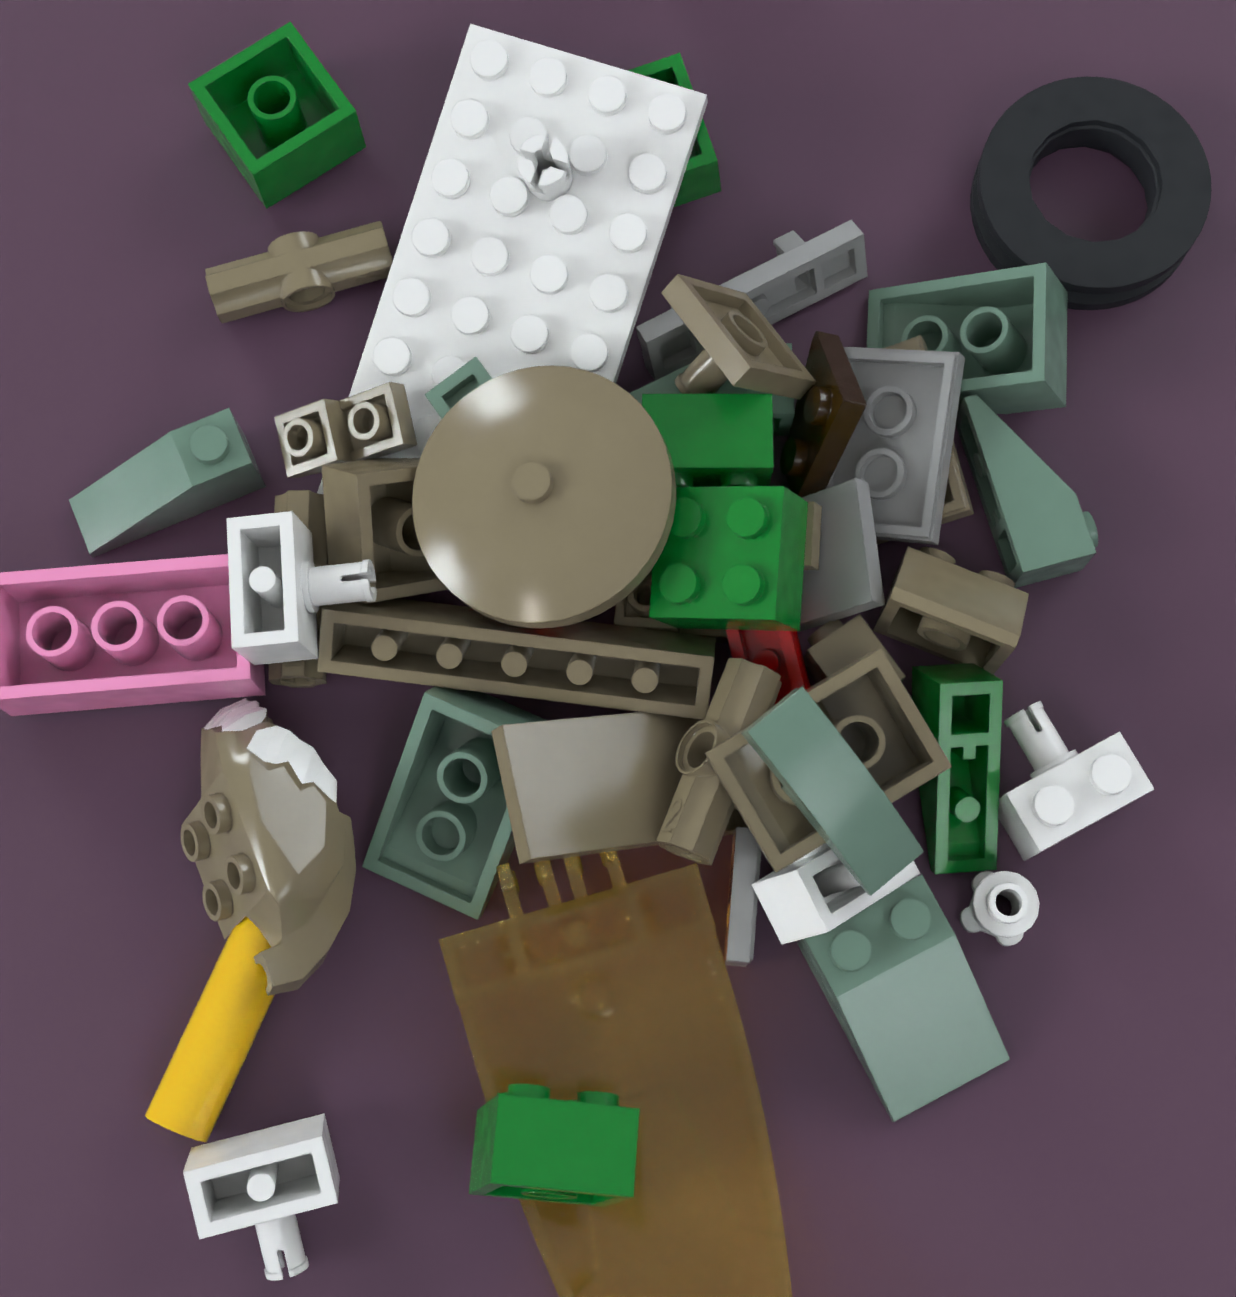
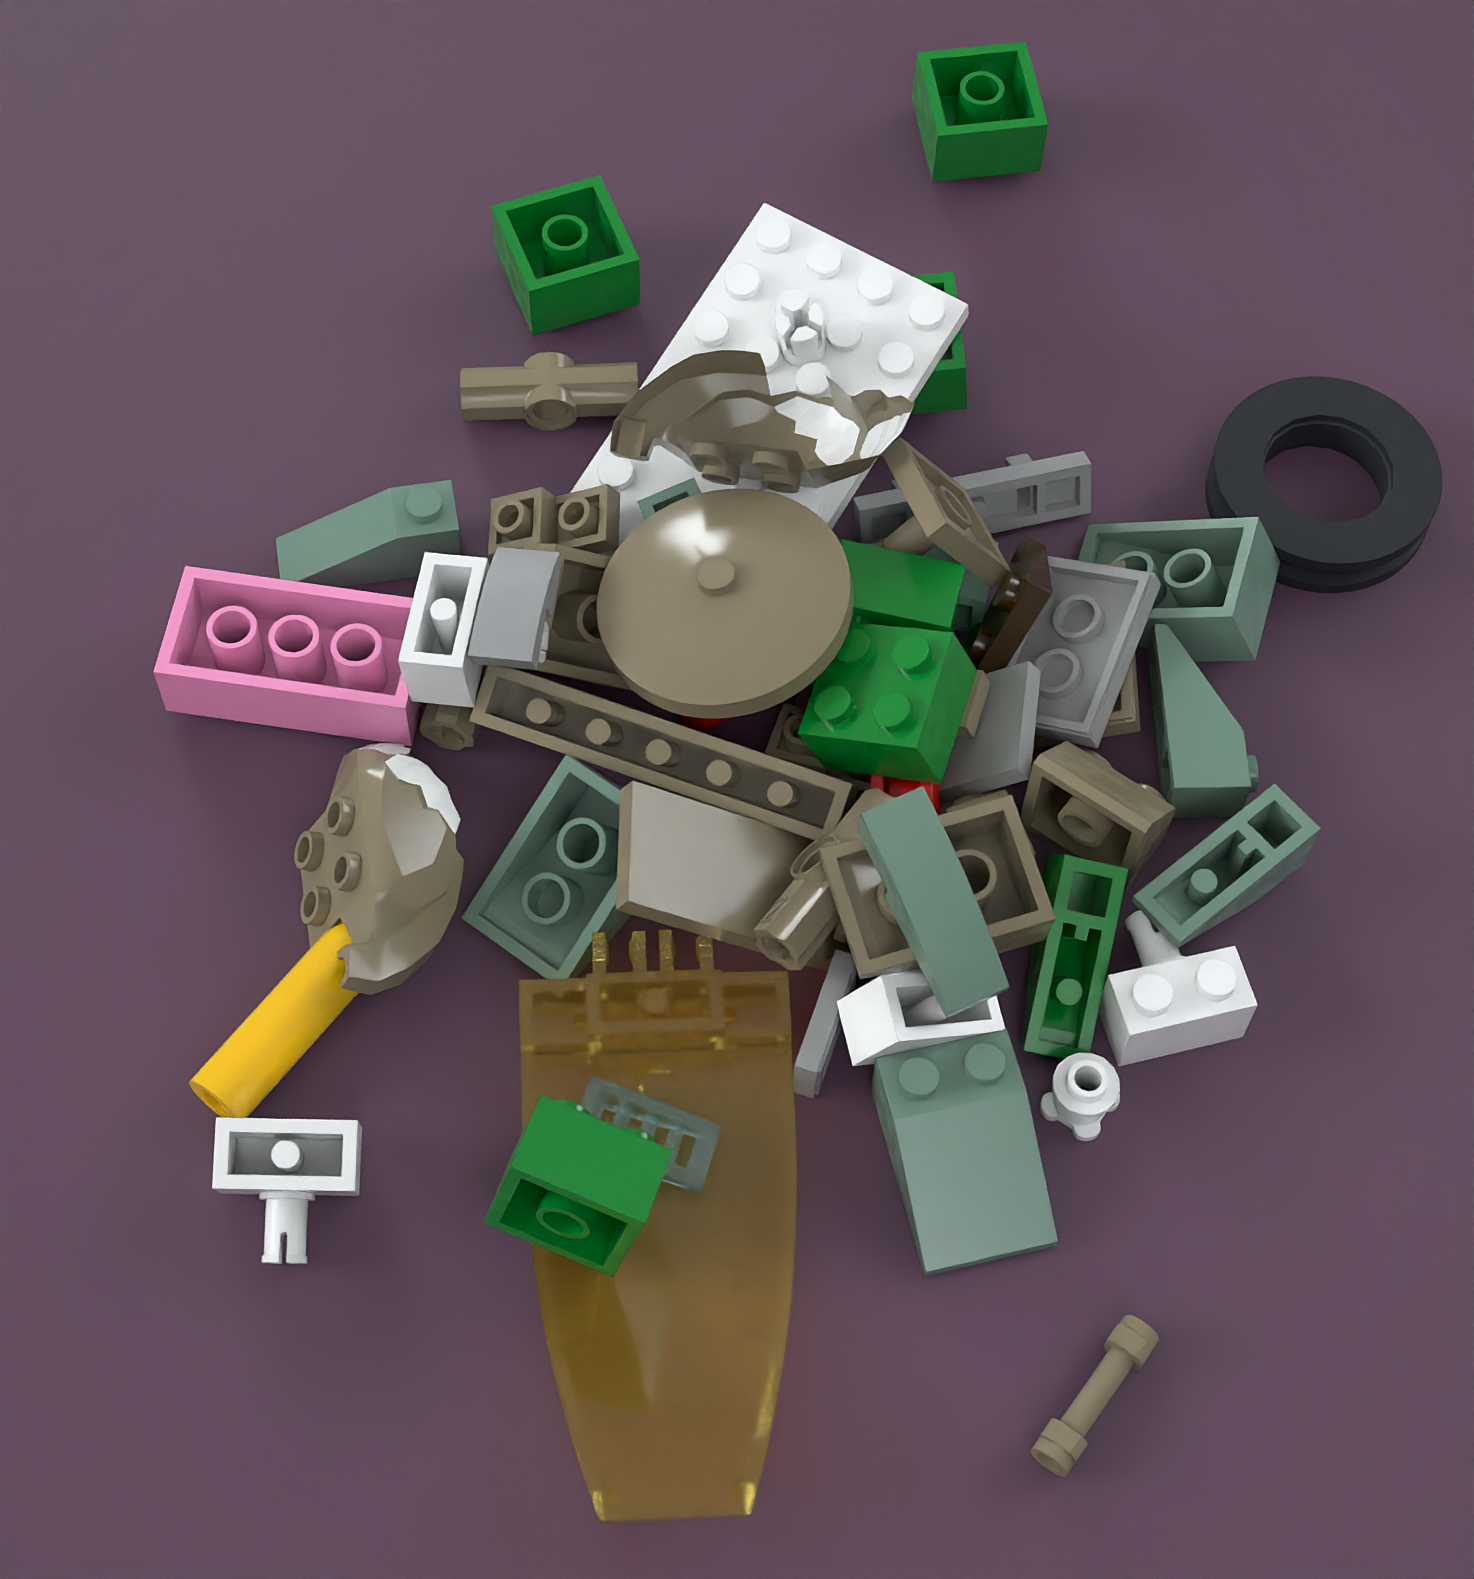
camera: 10 degrees right, 15 degrees down
(333, 557) = (514, 608): none -> light grey slope
(501, 292) = (728, 426): none -> dark tan animal
(544, 1052) = (629, 1103): none -> clear light blue slope
(1059, 1263) = (1064, 1440): none -> dark tan bar
(1093, 648) = (1230, 867): none -> sand green slope

